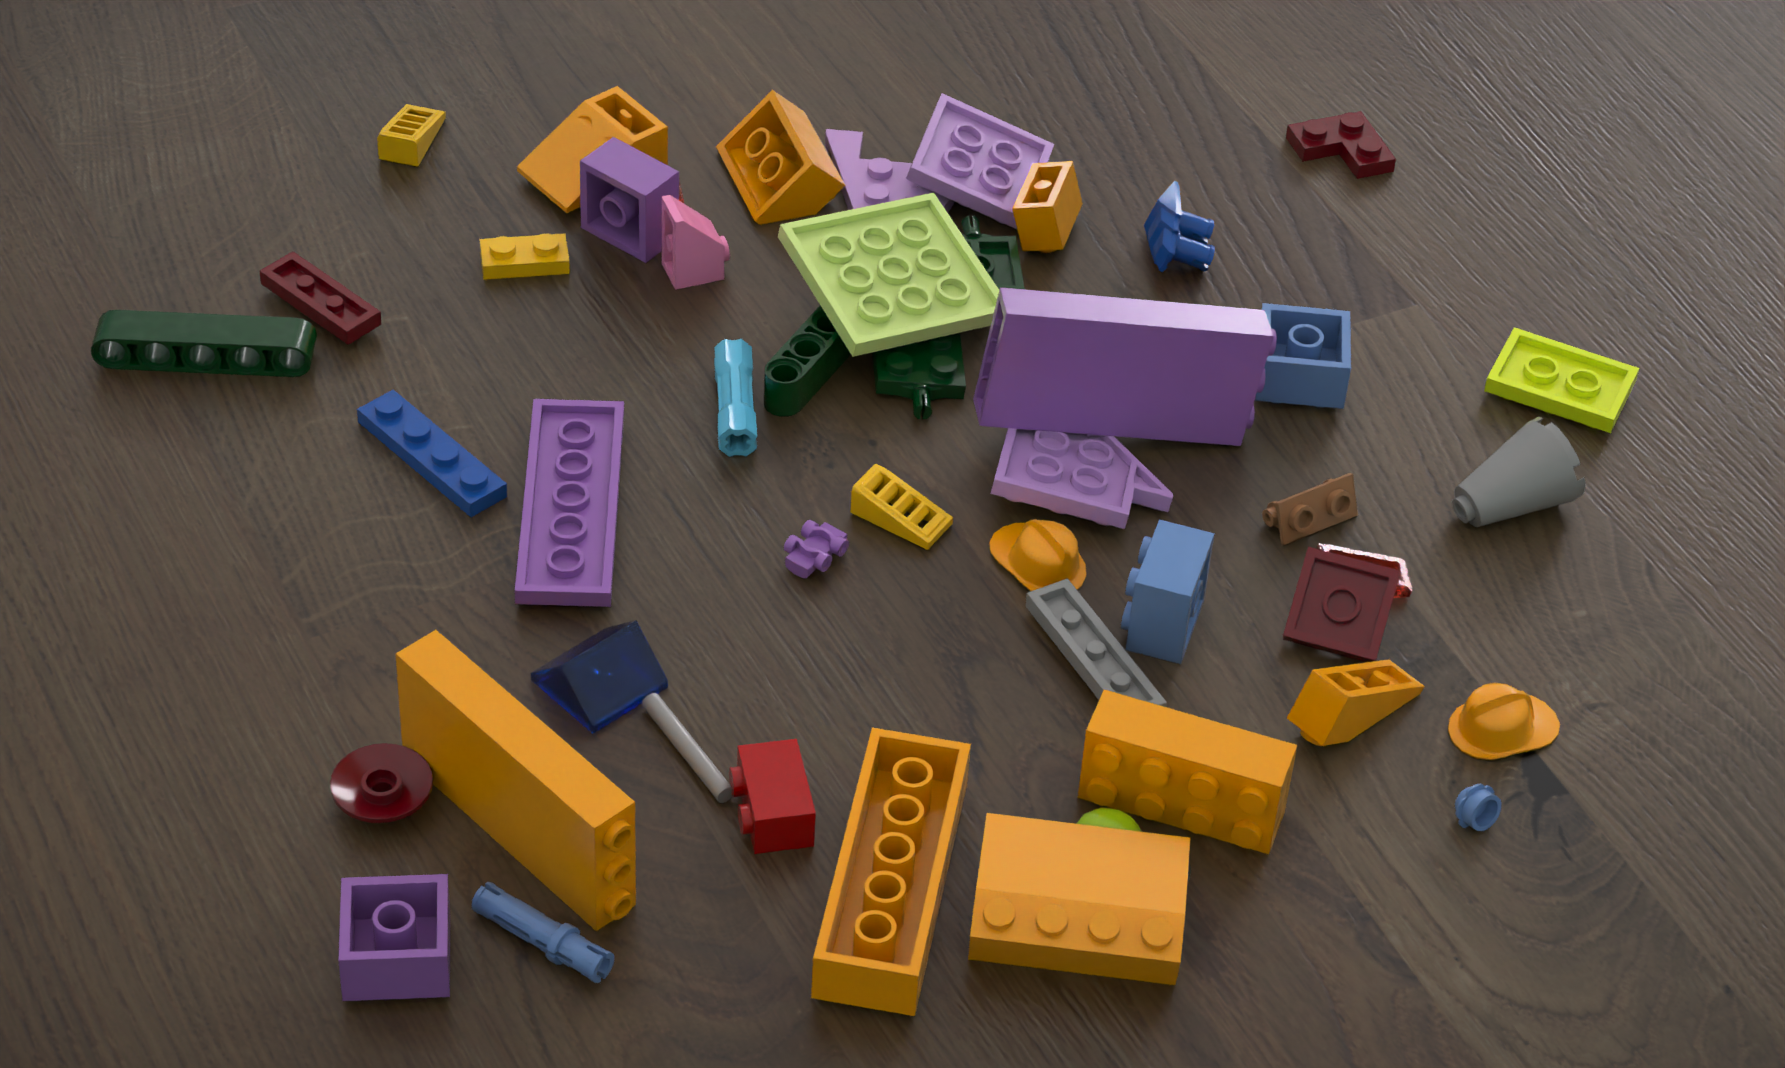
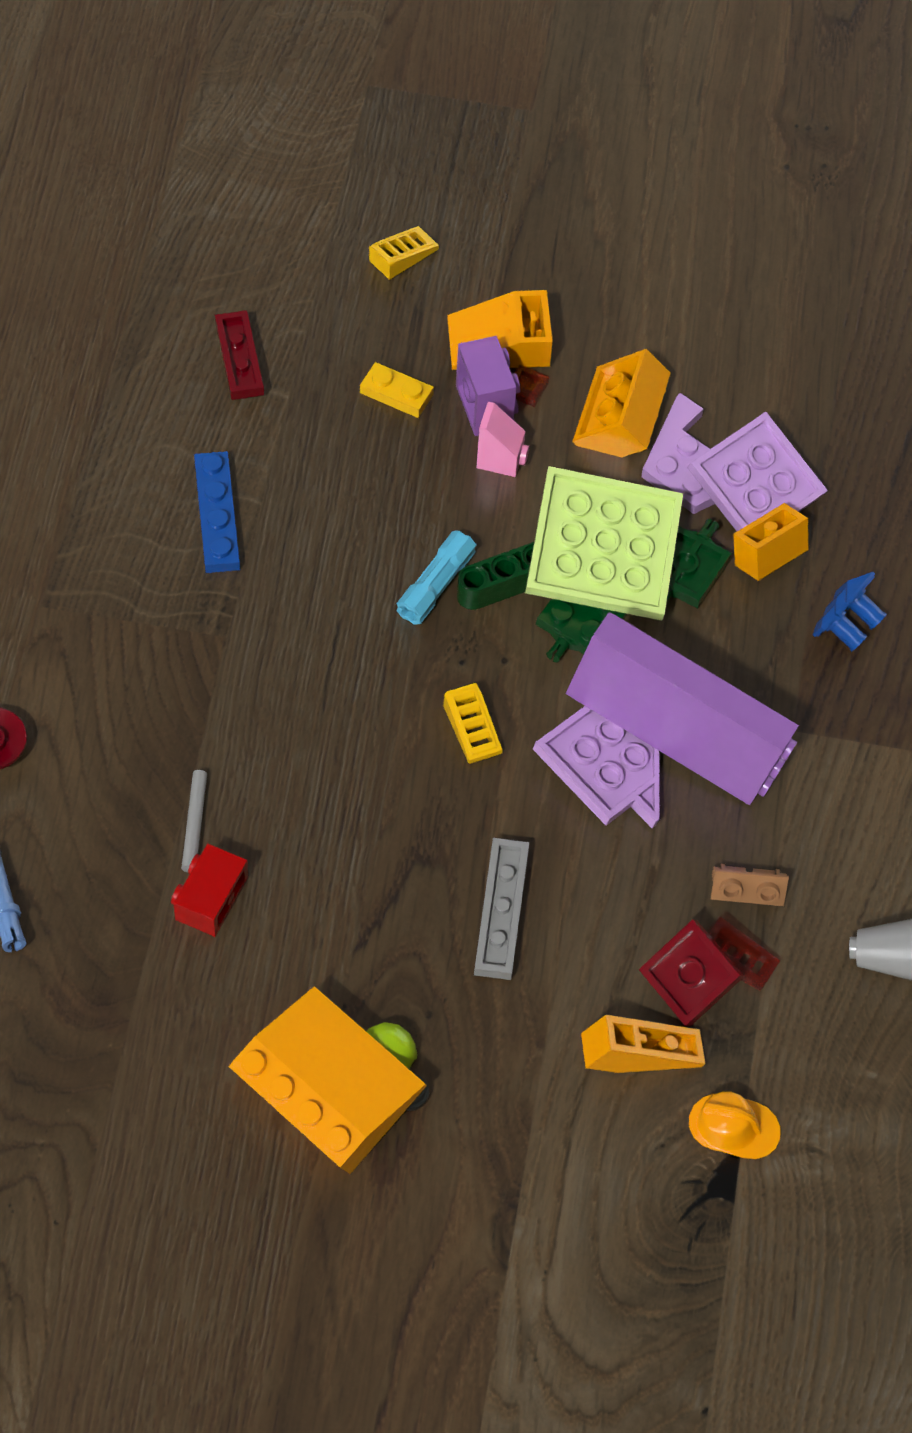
camera: 35 degrees right, 15 degrees up
(204, 343) = (141, 353): dark green beam -> none
(519, 780) = (46, 791): light orange brick -> none
(570, 503) = (267, 599): medium lavender plate -> none
(603, 676) = (183, 739): clear blue slope -> none
(815, 550) = (392, 724): medium lavender piece -> none
(891, 872) = (230, 987): light orange brick -> none
(1039, 553) = (535, 812): light orange piece -> none
(1167, 591) = (578, 894): medium blue brick -> none
(1186, 771) = (468, 1035): light orange brick -> none
(1309, 356) = (843, 763): medium blue brick -> none
(1477, 807) = (652, 1176): medium blue plate -> none

